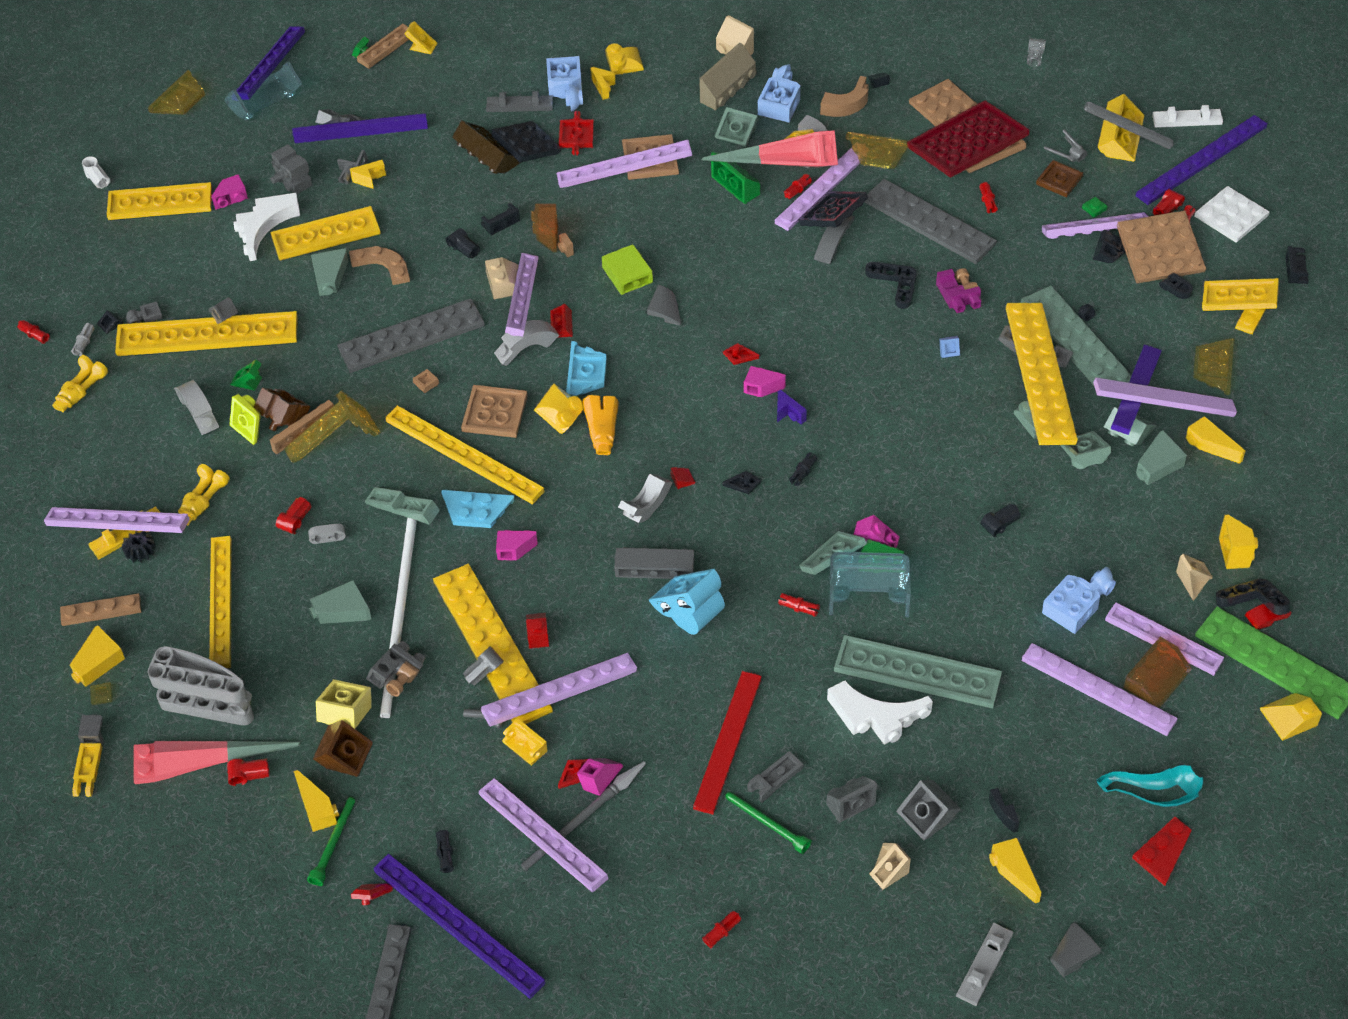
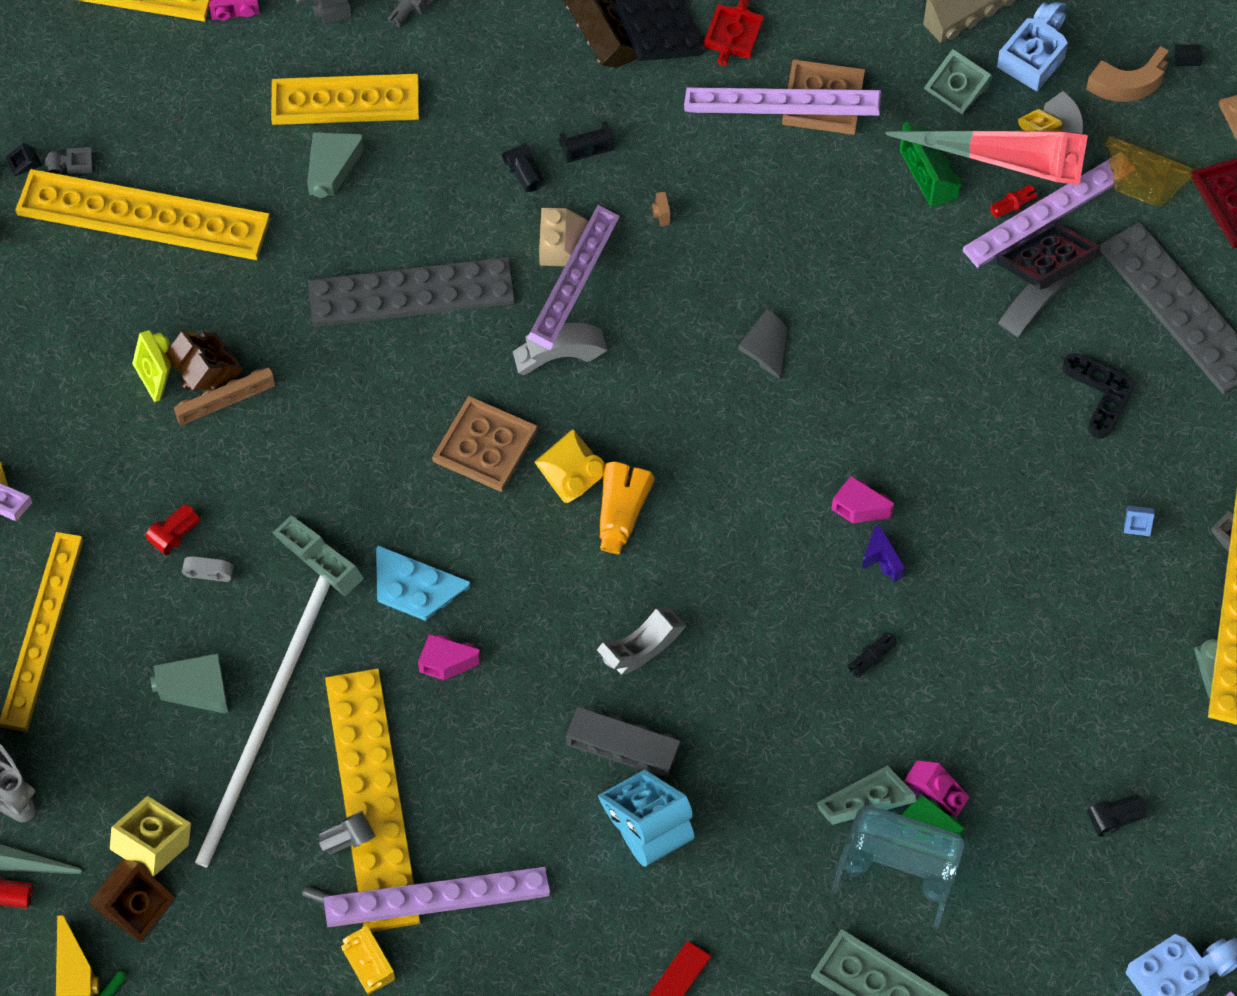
camera: 15 degrees right, 10 degrees up
(194, 502) = (51, 473): yellow piece -> none
(197, 404) = (95, 326): light grey arch -> none
(223, 310) = (171, 188): dark grey bracket -> none
(248, 376) = (176, 297): green slope -> none
(265, 216) = (277, 48): white arch -> none
(328, 423) = (290, 393): clear yellow bracket -> none
(365, 173) = (423, 19): yellow slope -> none
(382, 256) = (412, 158): medium nougat plate -> none
(396, 661) = (240, 796): dark grey hips -> none
(425, 381) = (408, 370): medium nougat plate -> none
(465, 455) = (425, 500): yellow plate -> none
(537, 630) = (436, 795): red slope -> none
(546, 225) = (643, 172): clear orange slope -> none
(562, 320) = (620, 327): red slope -> none
(586, 370) = (626, 415): medium azure wing -> none
(627, 269) = (733, 271): lime brick -> none
(681, 477) = (704, 619): red slope -> none
(740, 354) = (845, 448): red piece -> none
(743, 482) = (783, 651): black piece -> none
(799, 604) = (796, 862): red pin -> none
(958, 295) = (1183, 441): magenta hips -> none

